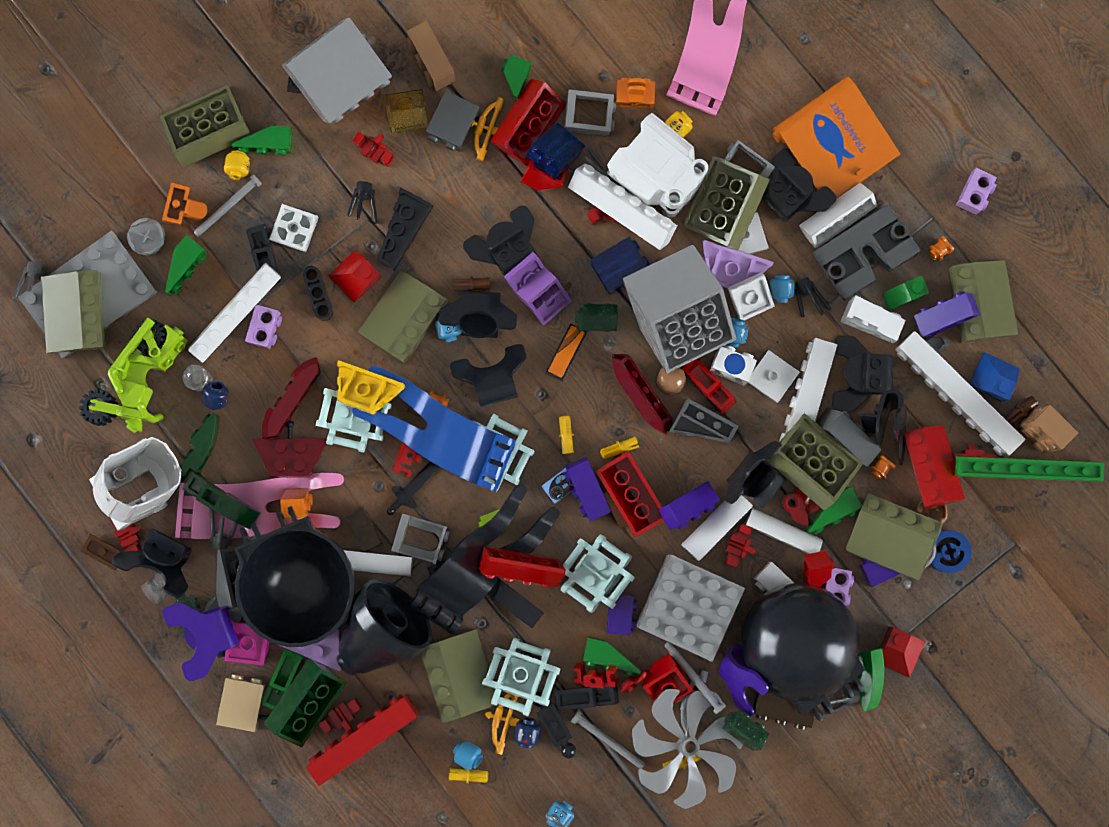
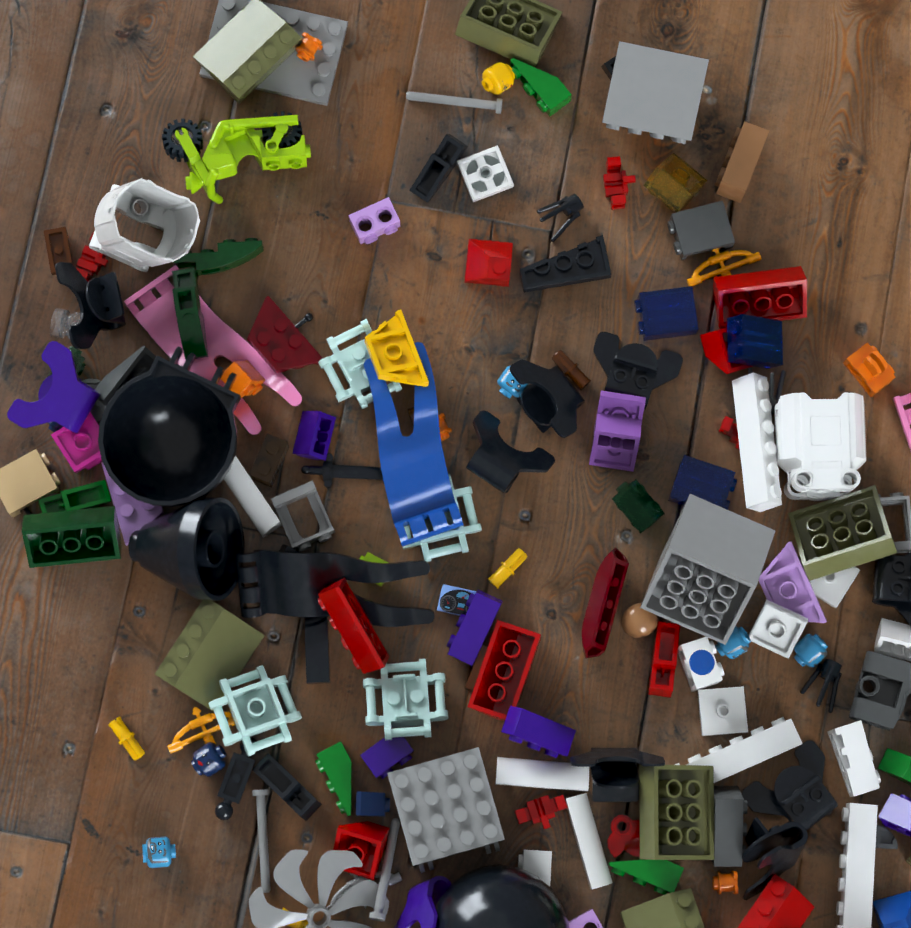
camera: 50 degrees right, 5 degrees down
(107, 271) = (308, 47): none -> orange brick
(146, 236) = (367, 55): light grey tile -> none
(180, 206) = (419, 60): orange brick -> none
(184, 261) = (376, 104): green slope -> none
(197, 377) = (280, 203): clear wheel -> none
(215, 395) = (278, 230): dark blue head -> none
(220, 539) = (154, 340): dark grey plant -> none
(234, 312) = (365, 185): white brick -> none
(286, 406) = (322, 300): dark red brick -> none
(312, 285) = (449, 233): black beam -> none
(341, 716) = (86, 580): red piece -> none
(358, 742) = (80, 615): red brick -> none
(372, 487) = (314, 435): none -> dark purple brick
(402, 458) = (362, 440): red piece -> none
(403, 316) = (488, 334): olive slope -> none
(467, 755) = (144, 722): dark azure head -> none
(488, 190) = (666, 313): none -> clear blue brick
(516, 74) = (793, 250): green slope -> none
(566, 352) = (581, 505): slope -> none
(586, 128) = (800, 354): light grey window -> none
(595, 680) = (307, 776): red piece -> none
(619, 448) = (536, 625): yellow axle -> none
(630, 683) = (330, 815): red plate -> none
(645, 651) = (372, 804): none -> dark blue slope
(680, 123) = (877, 431): yellow head -> none
(703, 422) = (625, 681): dark grey wedge -> none
(817, 568) = (582, 898): red slope -> none

